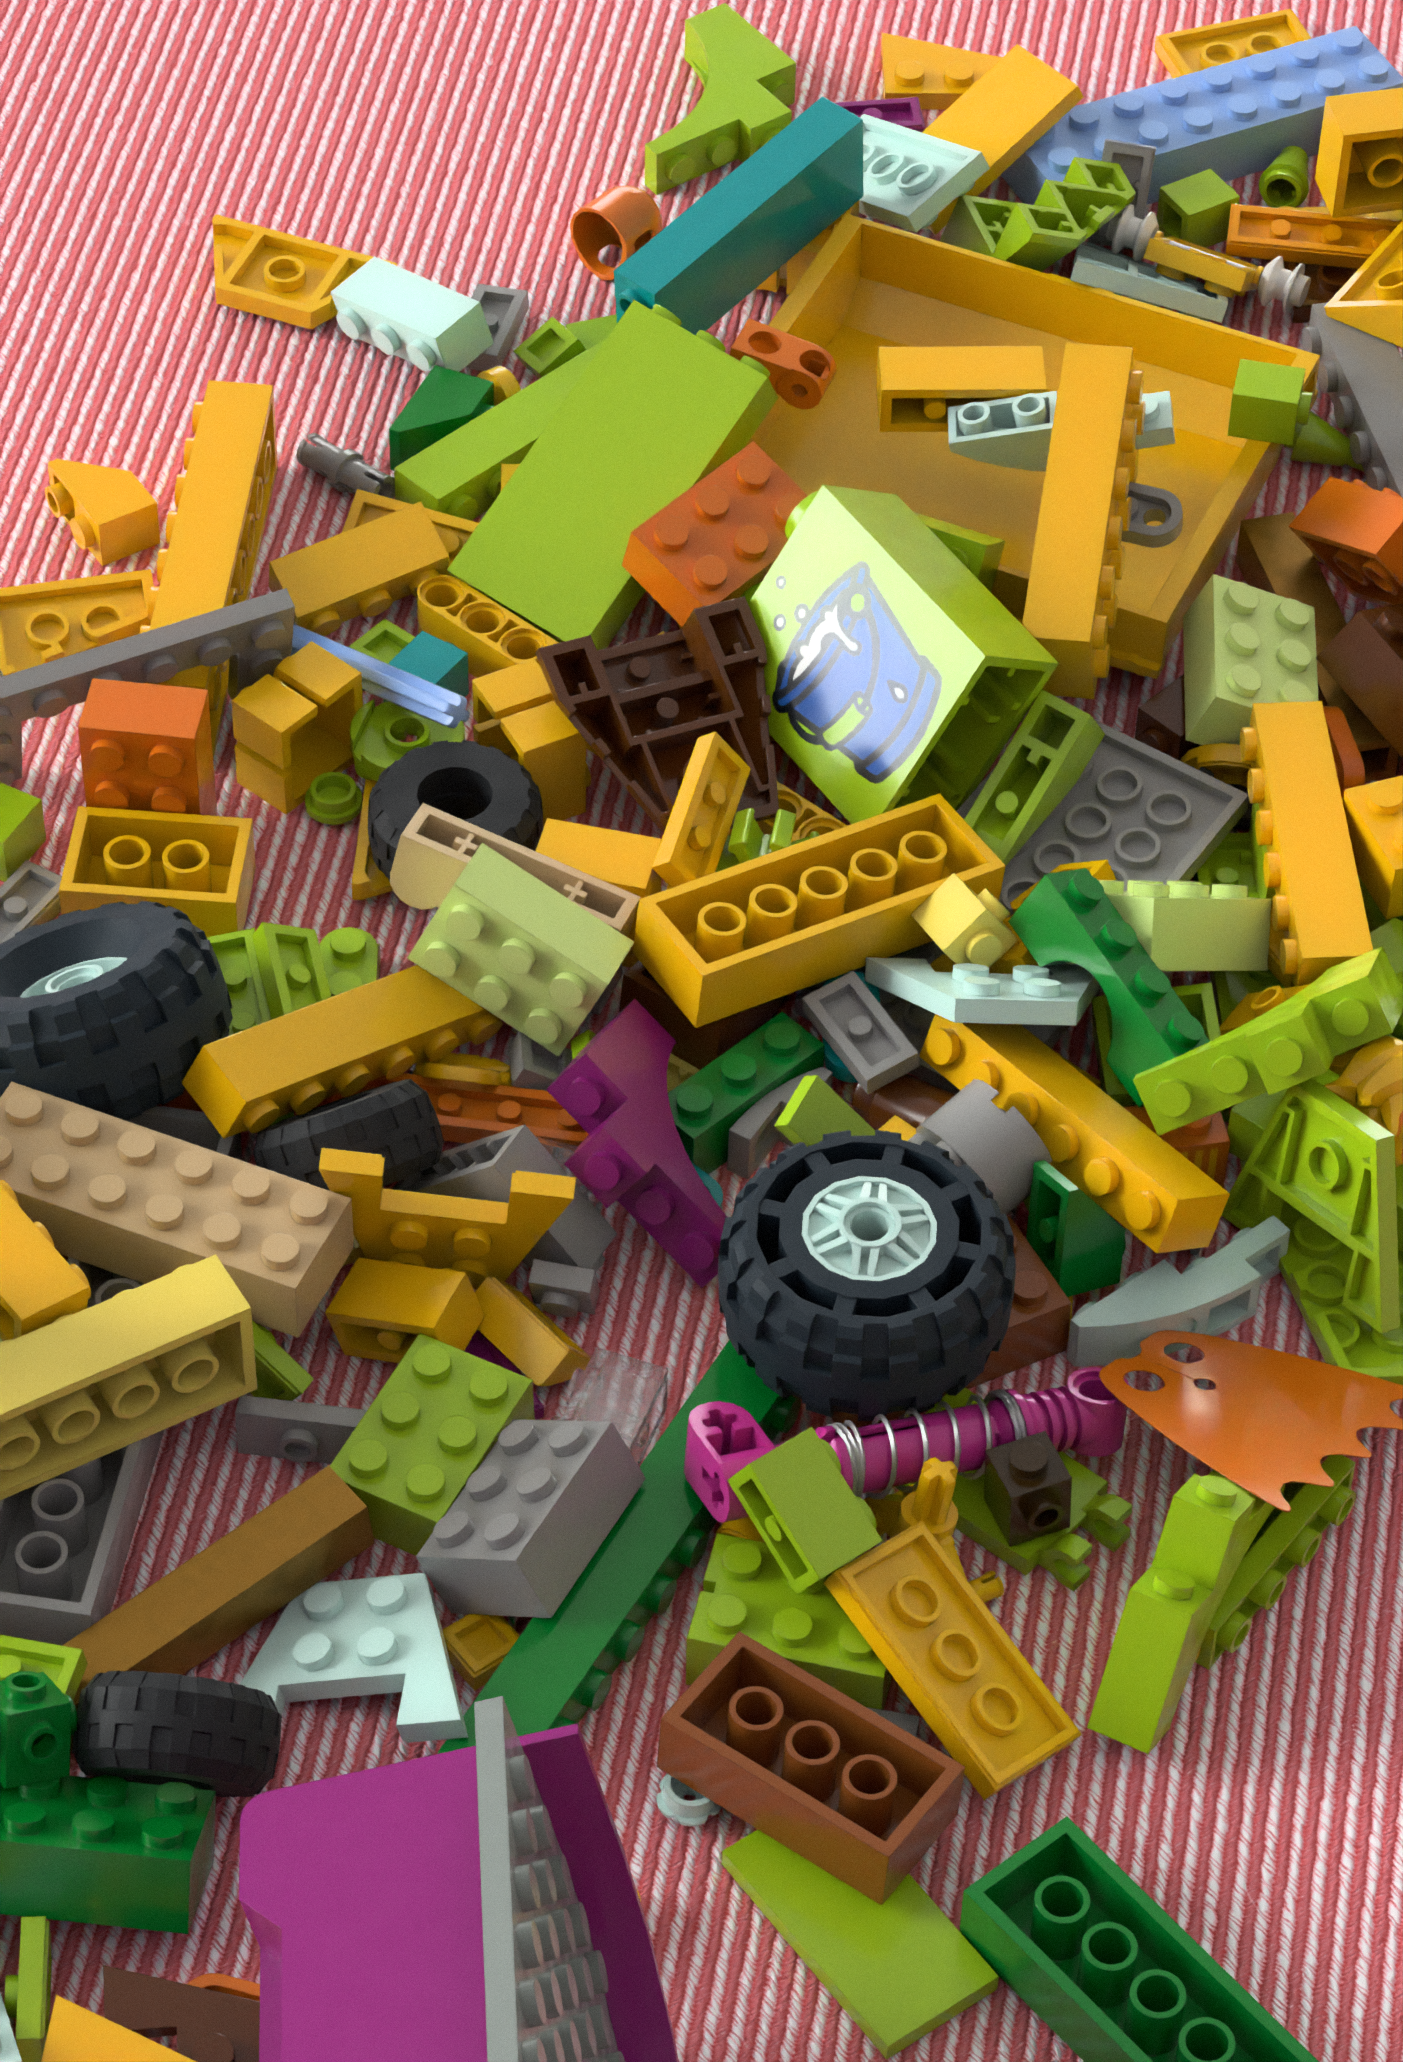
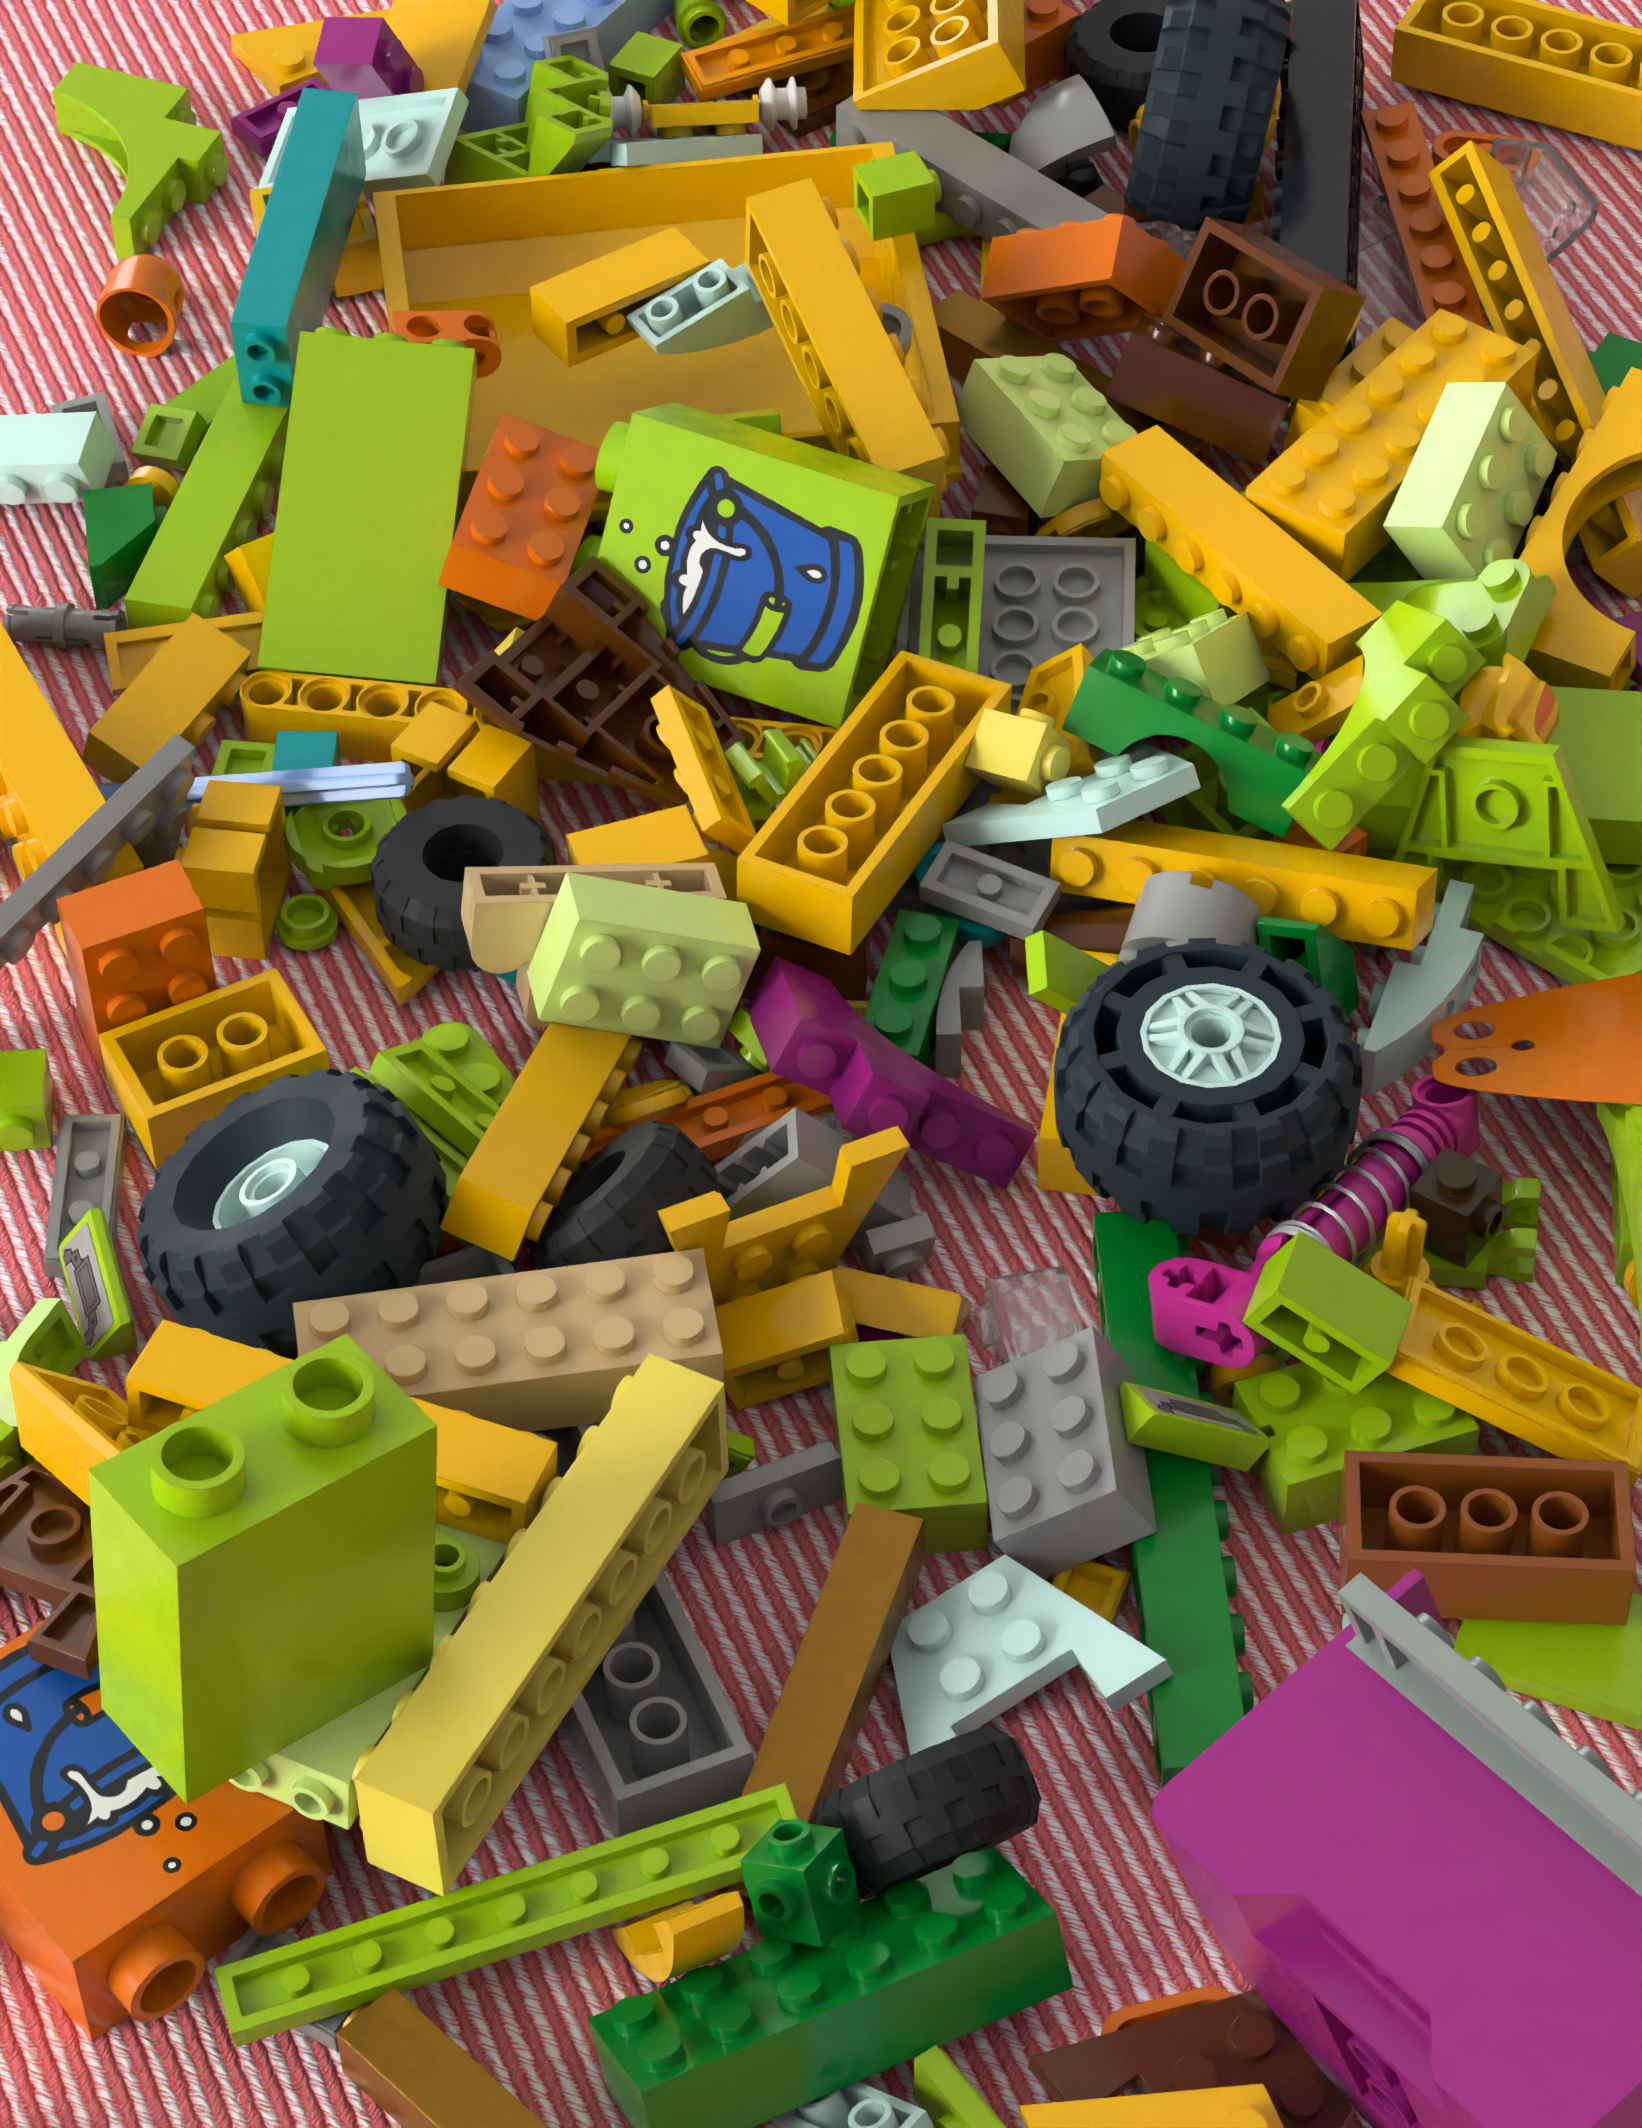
camera: 30 degrees left, 0 degrees up
(643, 1547) = (1190, 1427): none -> lime slope
(929, 98) = (365, 58): none -> magenta brick

